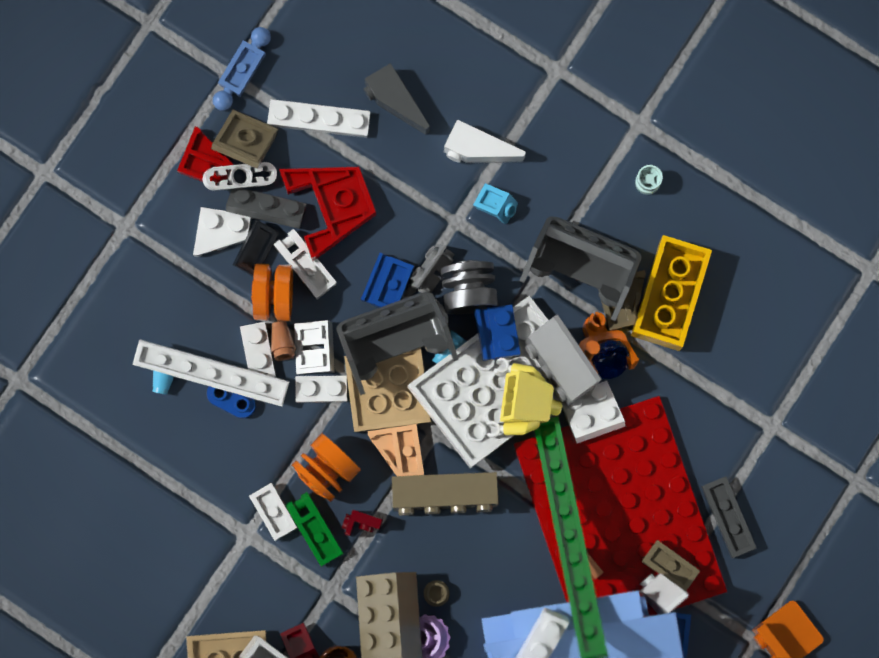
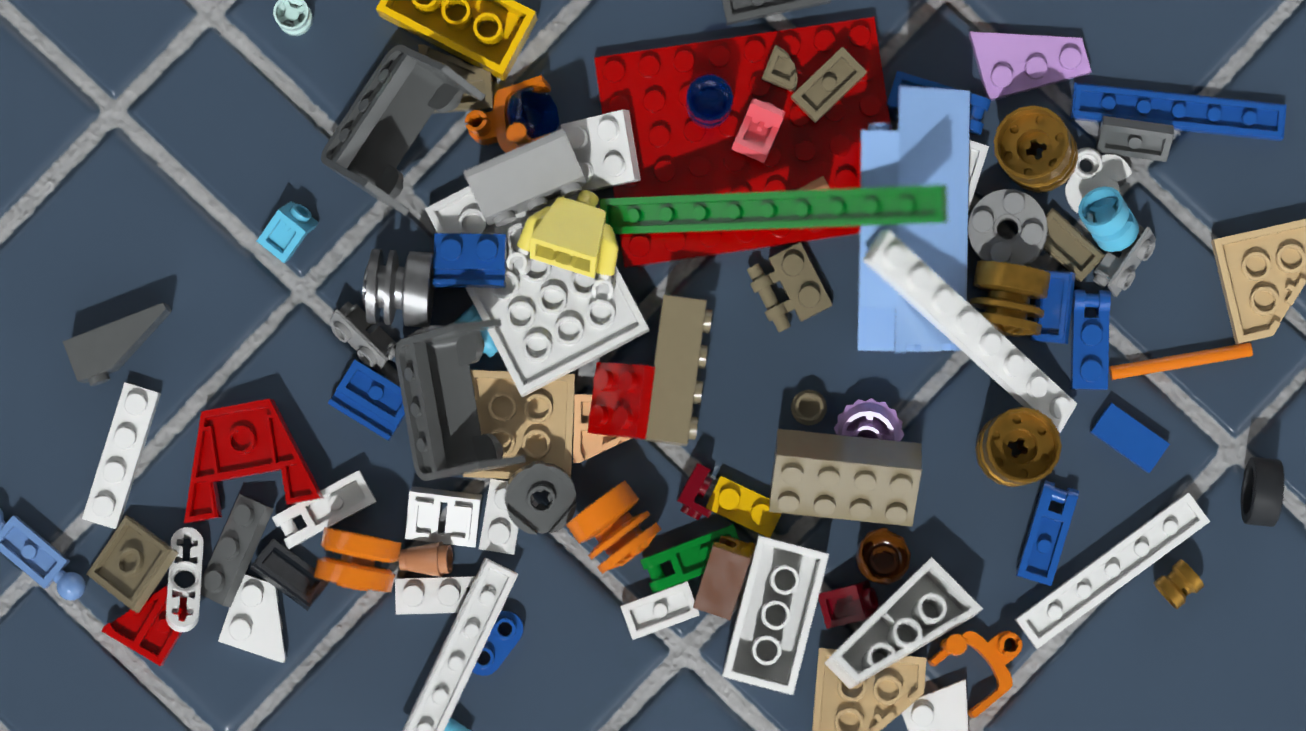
camera: 75 degrees left, 5 degrees up
(283, 593) = (775, 615): none -> white brick
(304, 552) = (724, 576): none -> reddish brown hinge
(324, 416) = (540, 477): none -> dark grey plate
(357, 558) = (743, 507): none -> yellow plate
(416, 456) = (621, 400): none -> red plate
(476, 146) = (202, 243): white slope -> none
(526, 570) = (799, 282): none -> dark tan plate
(628, 521) = (758, 130): none -> coral bracket
(642, 481) = (709, 101): none -> clear blue wheel
(662, 593) = (866, 101): white slope -> none
(674, 530) = (781, 70): none -> dark tan tile

